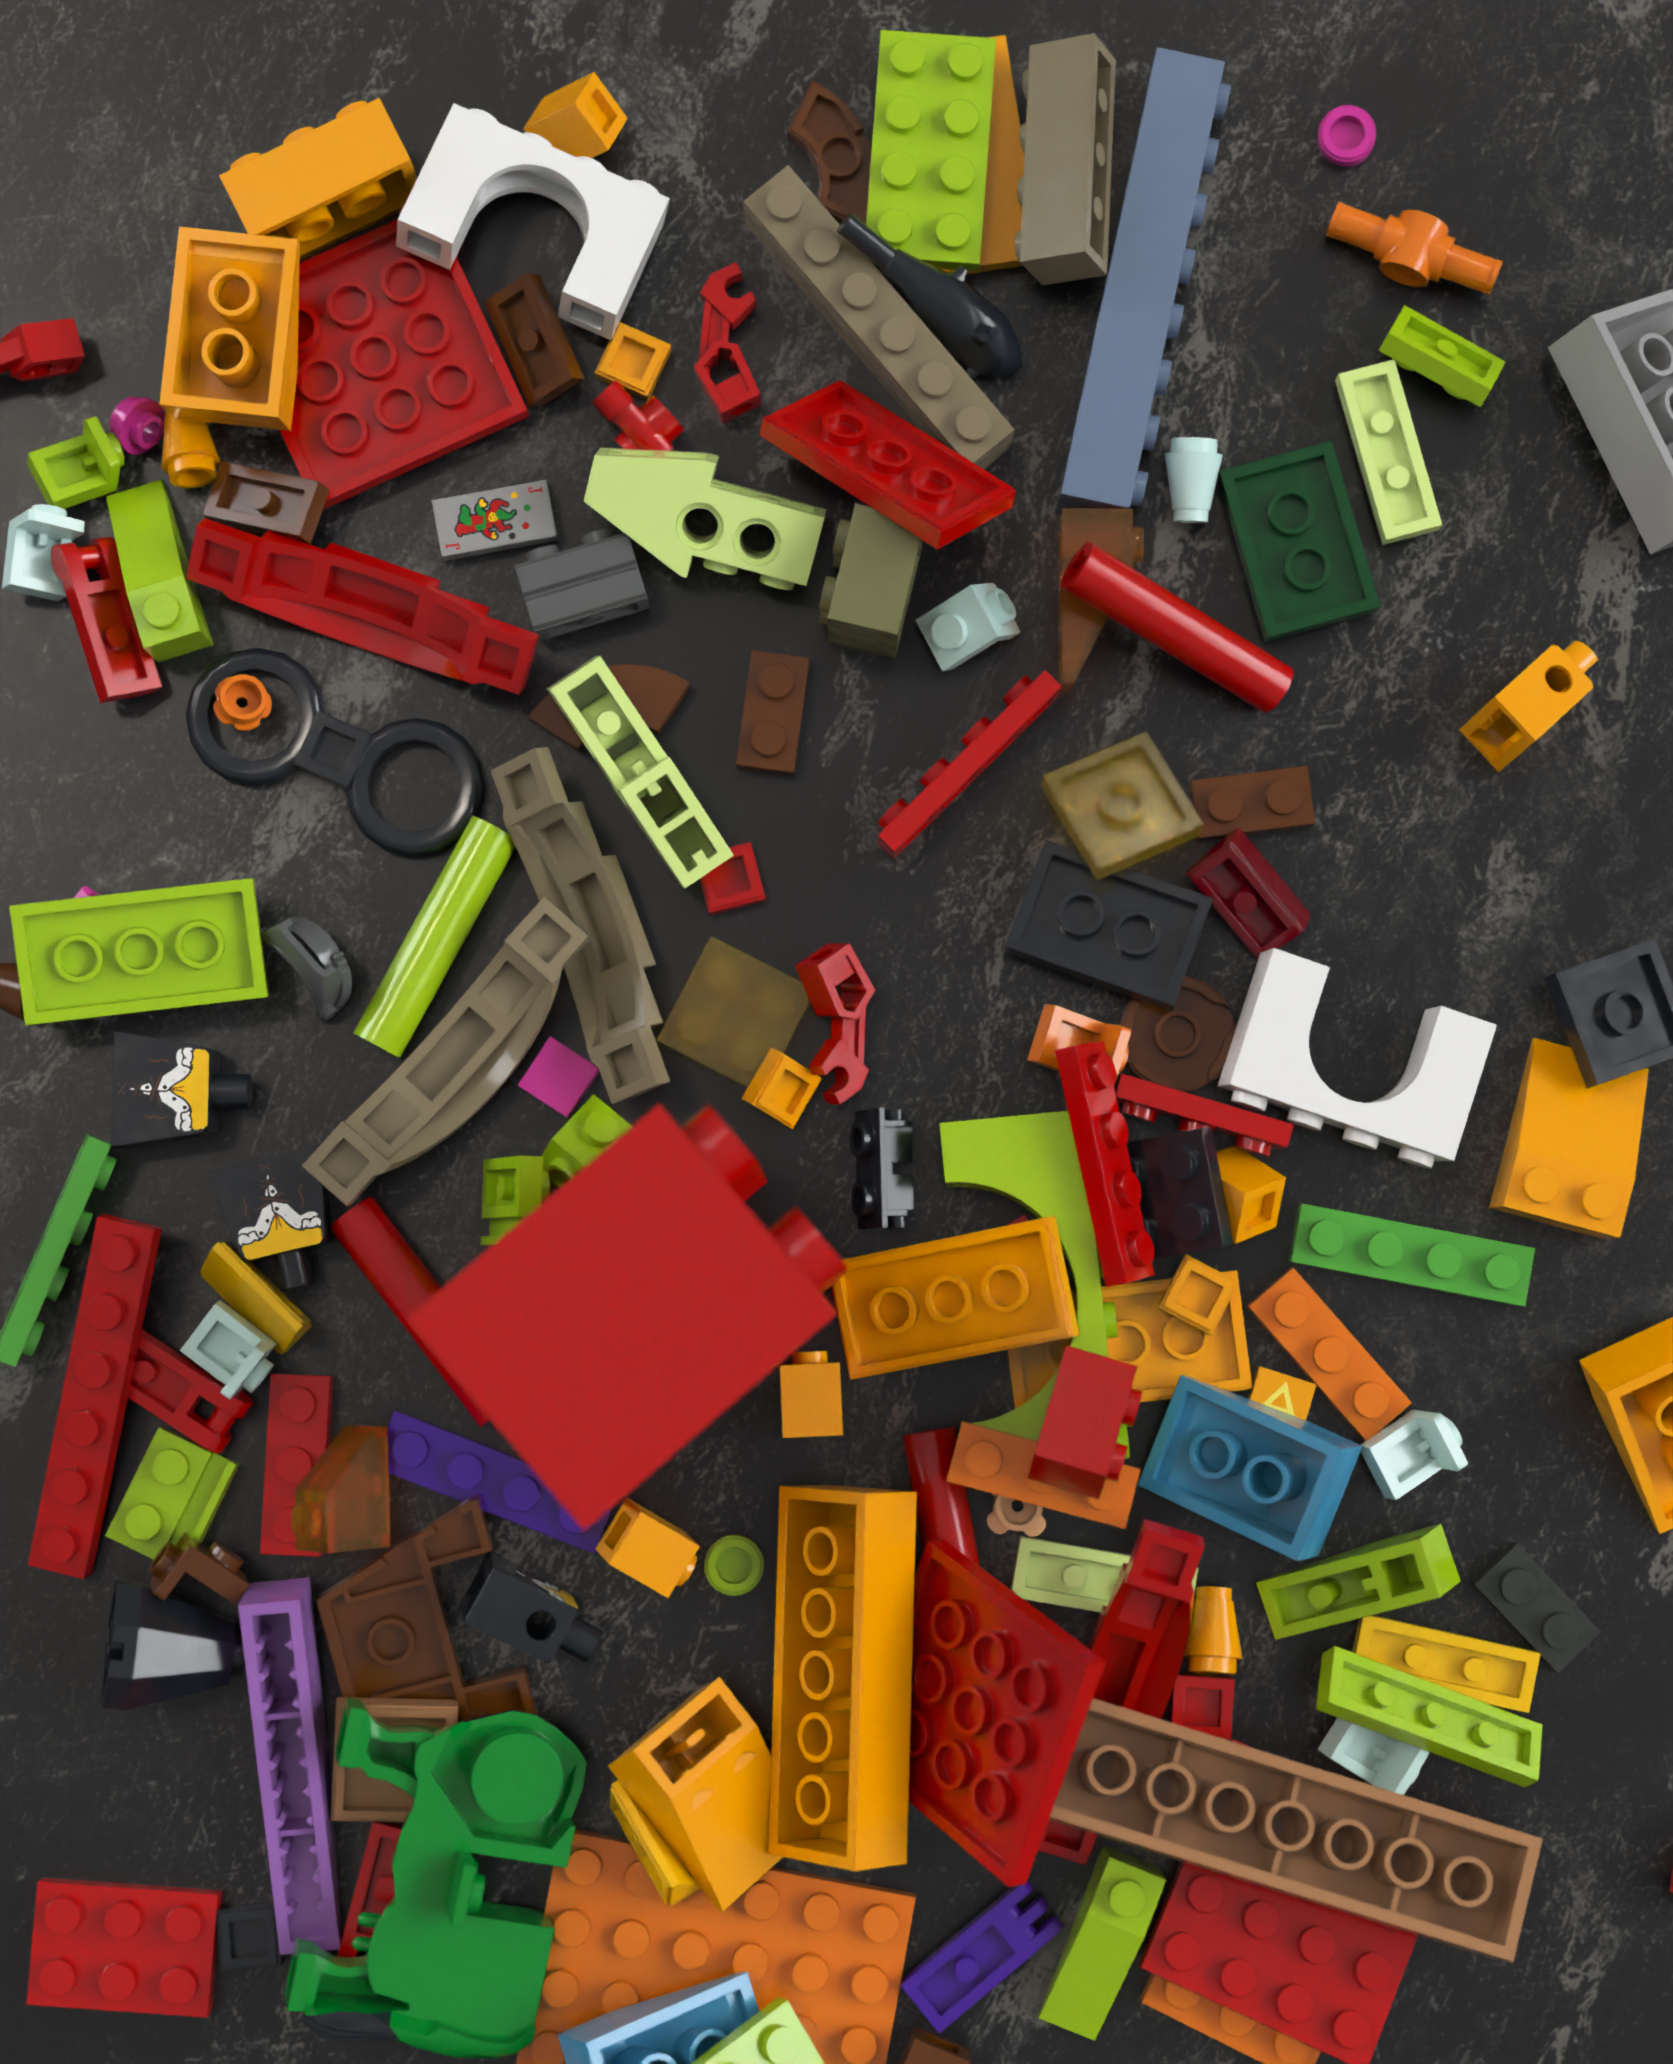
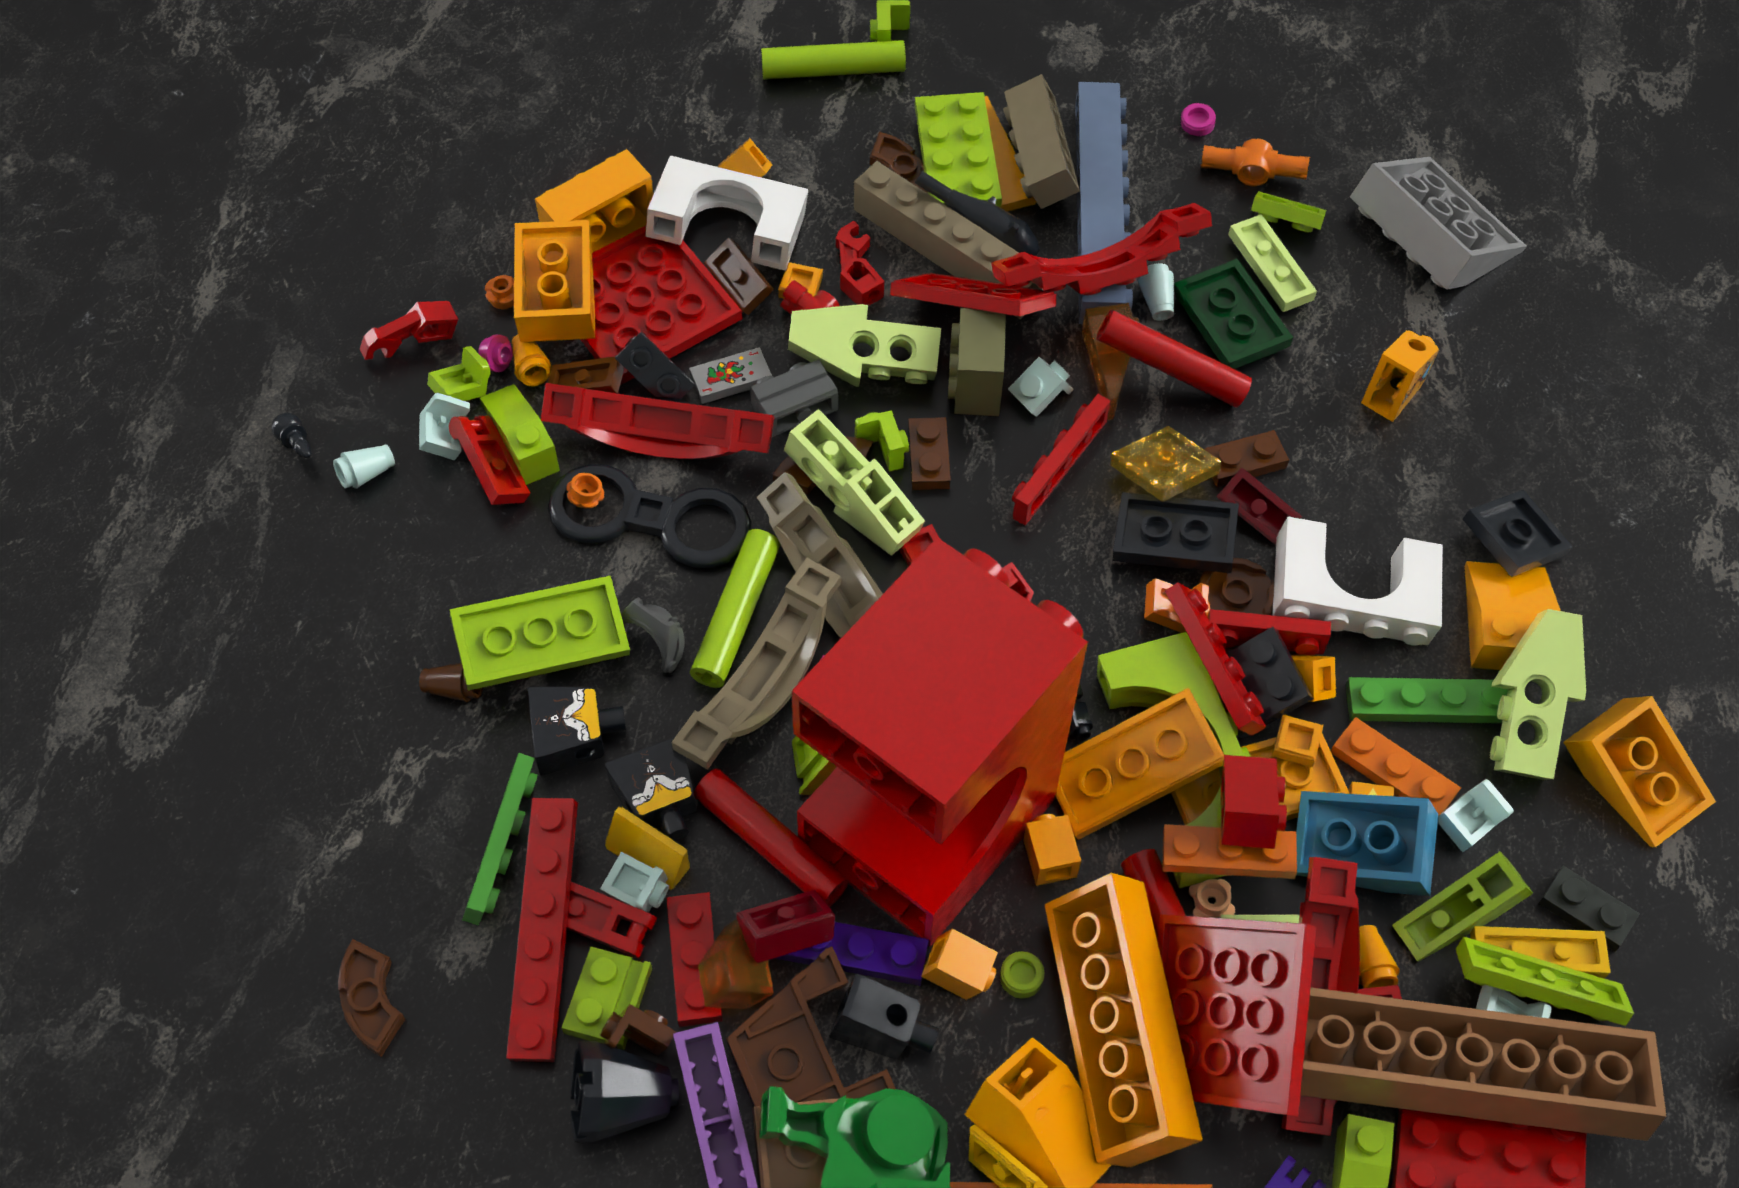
camera: 10 degrees left, 25 degrees down
(147, 294) = (496, 296): none -> orange plate
(371, 510) = (654, 369): none -> black hinge
(420, 1459) = (786, 925): none -> dark red slope
(719, 690) = (883, 428): none -> lime bracket
(1110, 441) = (1112, 265): none -> red piece
(1588, 1257) = (1554, 659): none -> yellowish green brick

